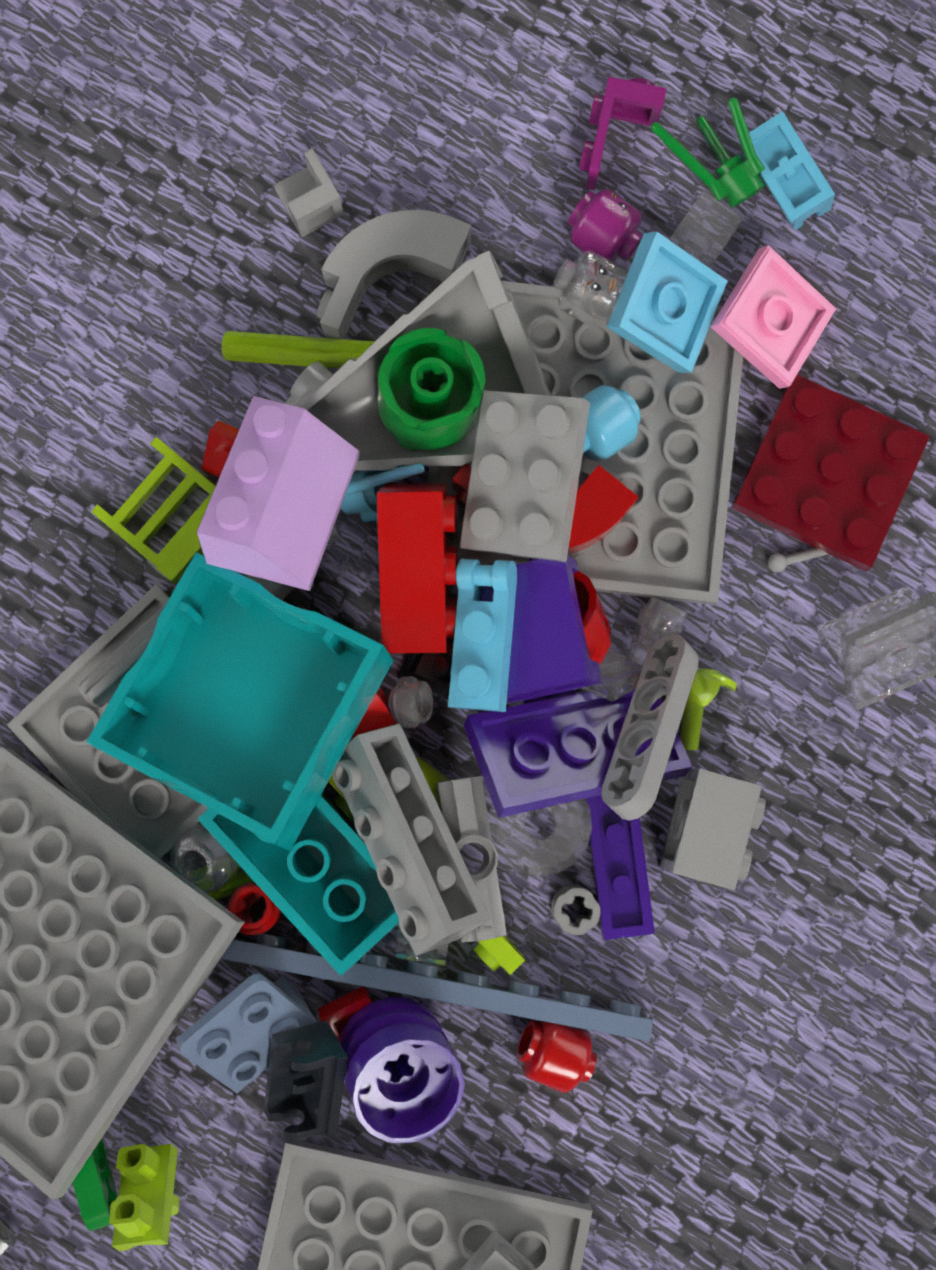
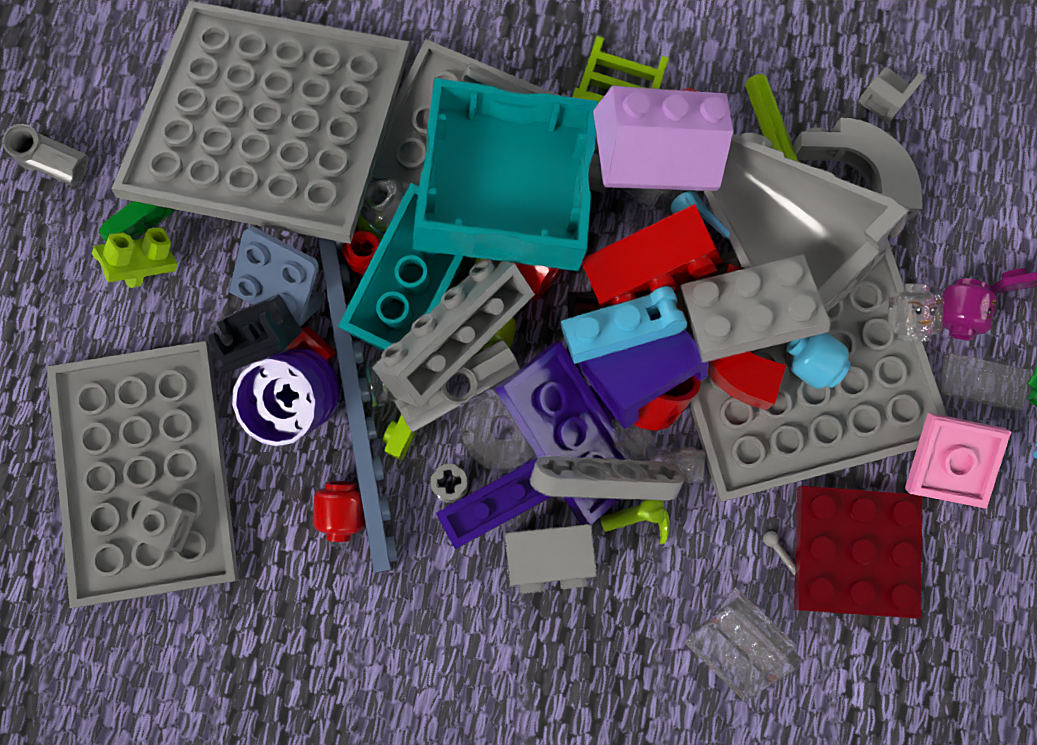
camera: 70 degrees right, 5 degrees down
(411, 702) = (553, 302): clear plate -> none
(456, 385) = (787, 218): green brick -> none
(667, 302) = (931, 370): medium azure plate -> none

